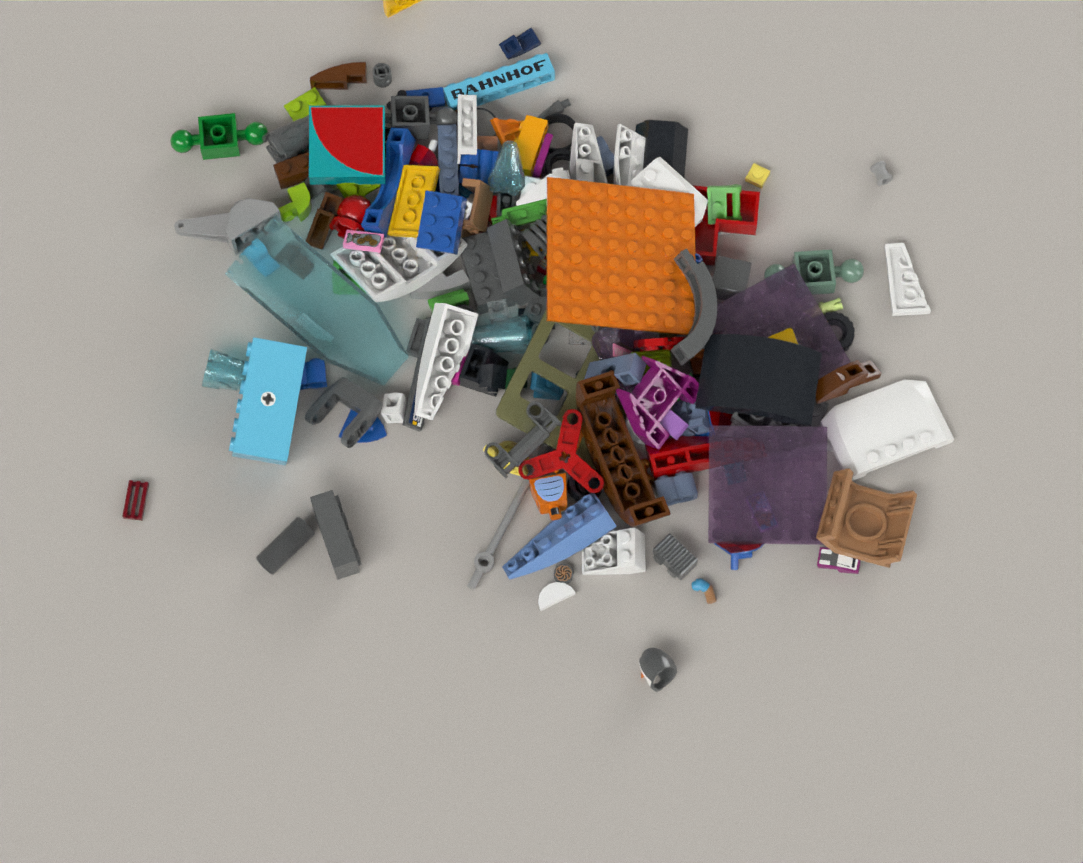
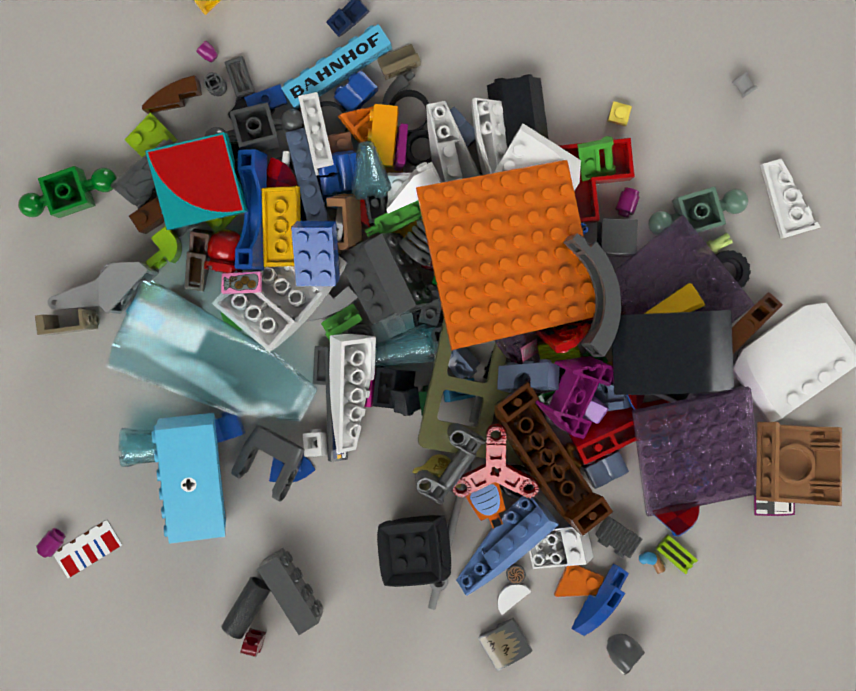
camera: 15 degrees left, 20 degrees up
(108, 446) = (50, 543): none -> magenta brick
(137, 485) = (85, 588): dark red tile -> none
(140, 463) = (87, 549): none -> sticker
(186, 252) = (50, 323): none -> dark tan panel
(283, 580) = (253, 643): none -> dark red leg
(381, 47) = (207, 51): none -> magenta hose
(406, 88) = (244, 92): none -> dark grey tile
(468, 512) = (414, 551): none -> black piece
(513, 106) = (356, 92): none -> blue brick
(537, 638) = (505, 644): none -> slope
(554, 355) = (463, 363): none -> sand blue brick
(558, 90) = (399, 61): none -> dark tan panel
(625, 594) = (578, 582): none -> orange wing
(644, 615) = (601, 606): none -> blue slope
(721, 575) = (688, 564): none -> lime tile
(749, 250) = (627, 202): none -> magenta brick

